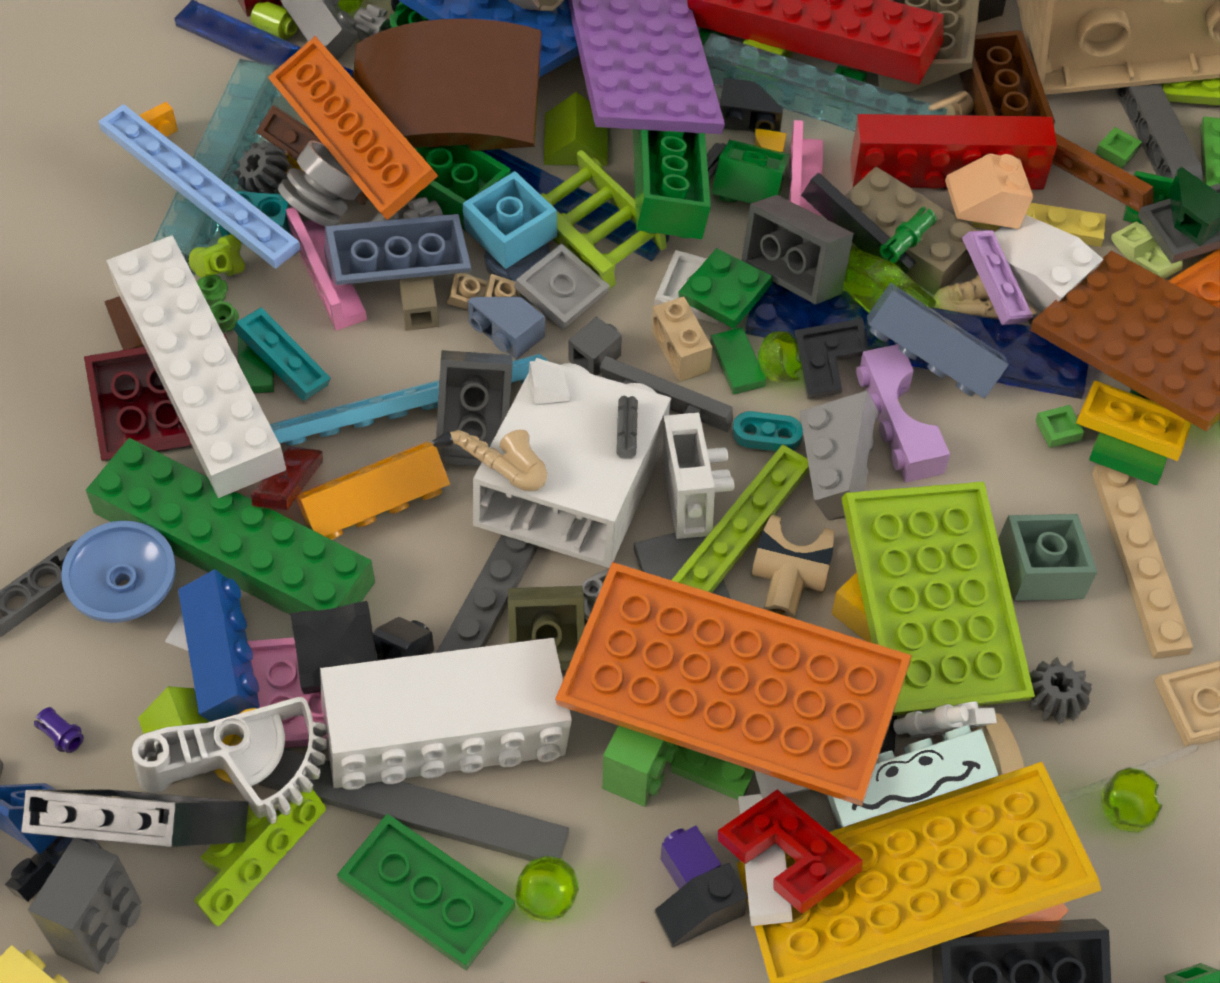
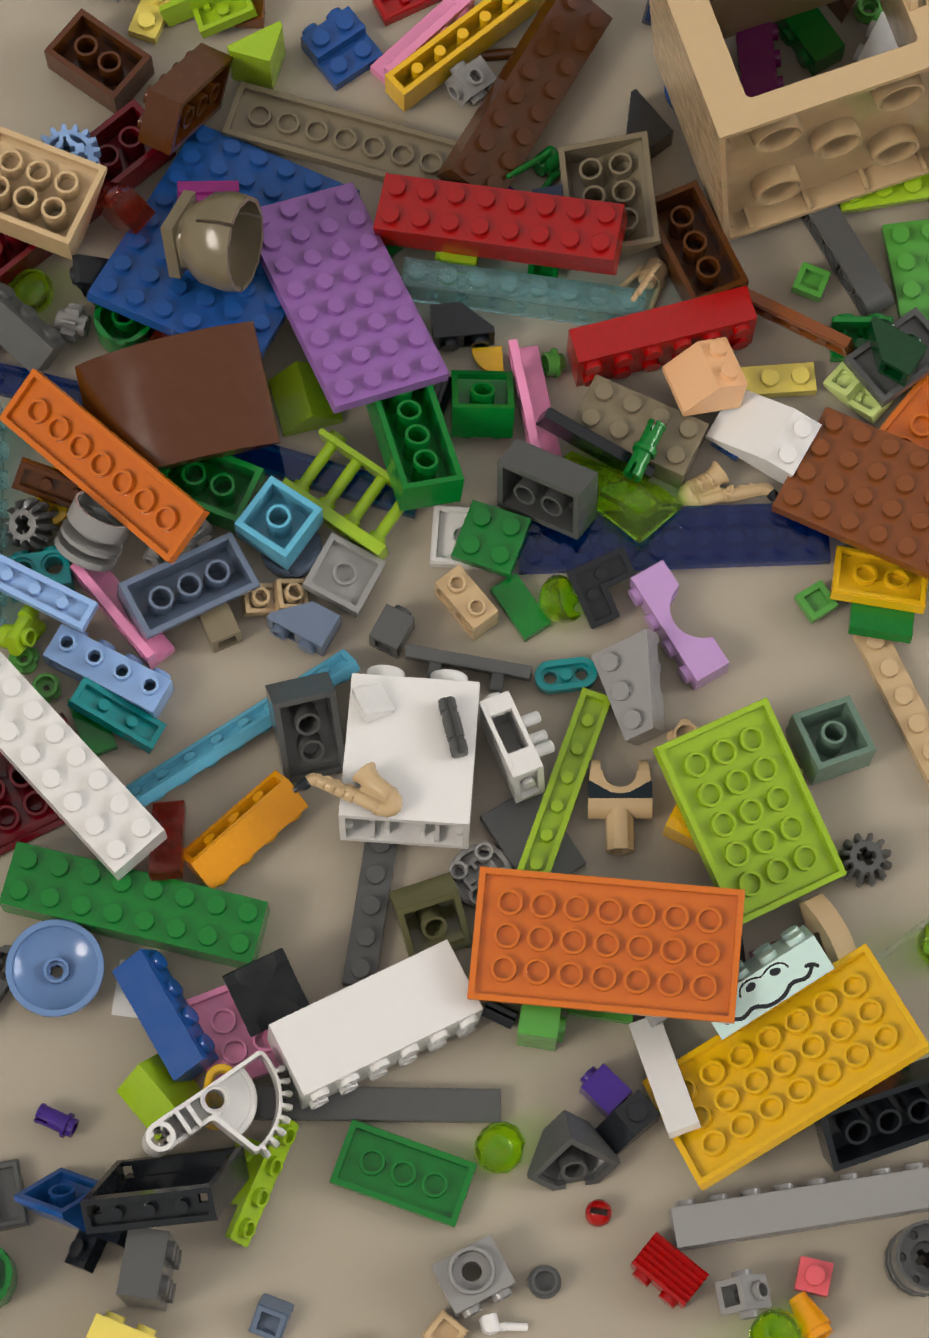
camera: 15 degrees left, 15 degrees up
(302, 320) = (125, 676): none -> light blue brick
(402, 639) = (319, 969): black slope -> none
(589, 745) = (500, 1014): none -> black piece
(629, 921) = (571, 1153): none -> dark grey slope
(820, 857) = (670, 1045): red plate -> none
(834, 158) = (553, 363): none -> bright green plate
(937, 341) = (693, 554): sand blue brick -> none
(944, 719) = (781, 920): white plate -> none
(997, 277) = (731, 467): lavender tile -> none

